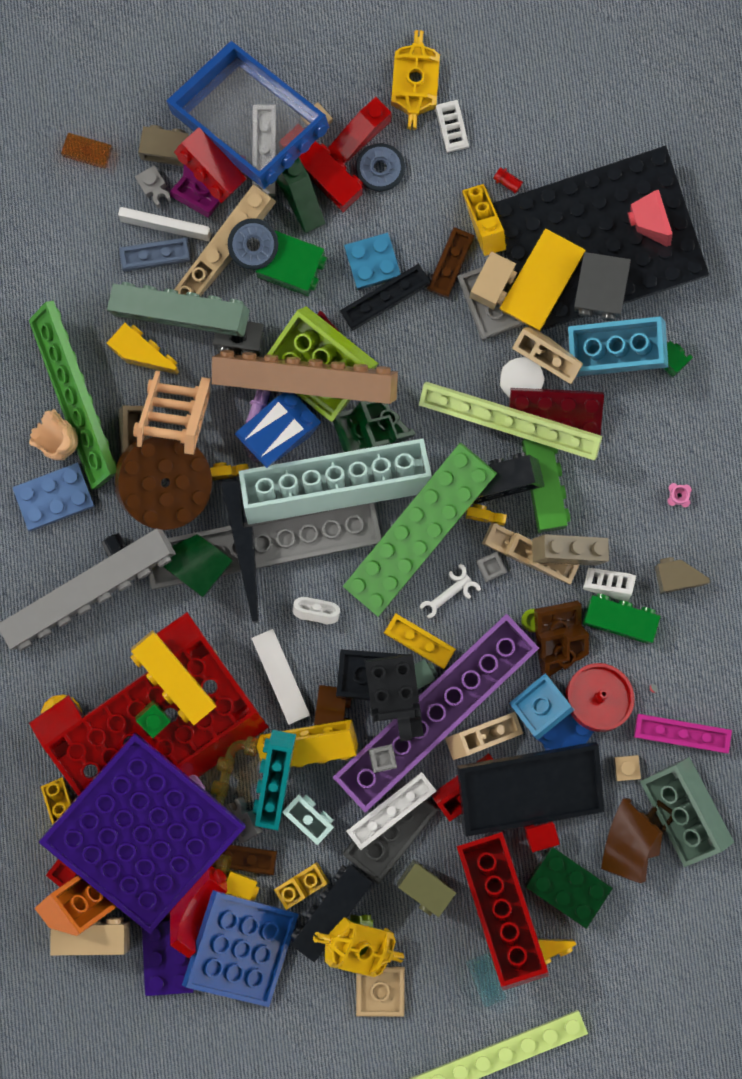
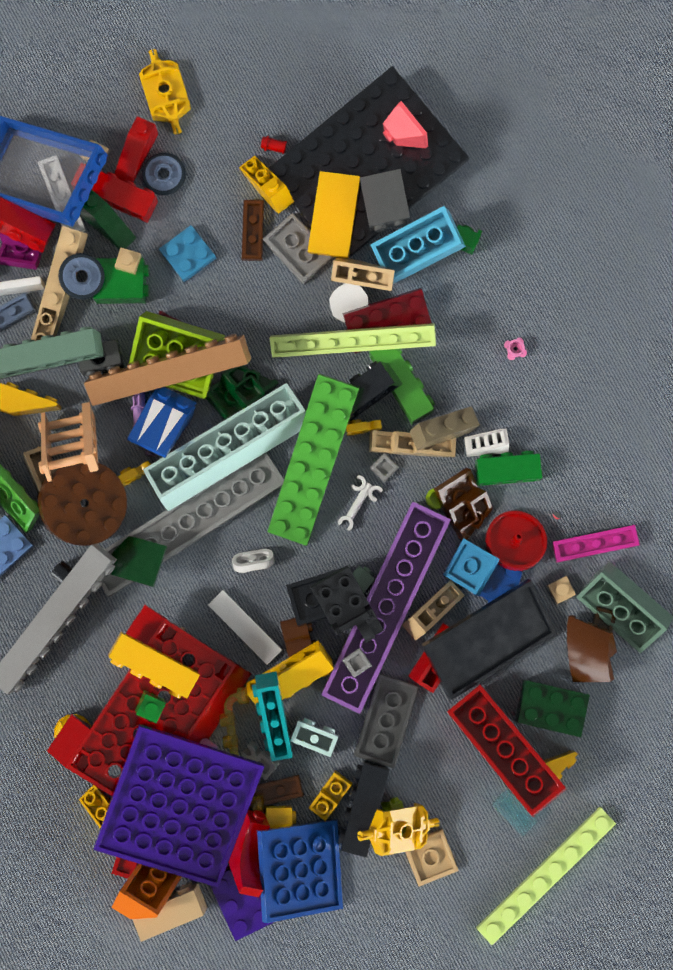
camera: 20 degrees left, 0 degrees up
(244, 544) = (171, 529): black slope -> none
(307, 246) = (127, 261): none -> tan plate
(385, 297) = (209, 279): black tile -> none
(391, 811) = (380, 703): white plate -> none
(419, 641) = (349, 552): yellow tile -> none
(426, 889) = (436, 758): olive brick -> none
(446, 108) = (199, 104): white slope -> none
(493, 280) = (293, 231): tan brick -> none
(541, 836) = (513, 675): red panel -> none
(678, 576) = (540, 415): dark tan slope -> none

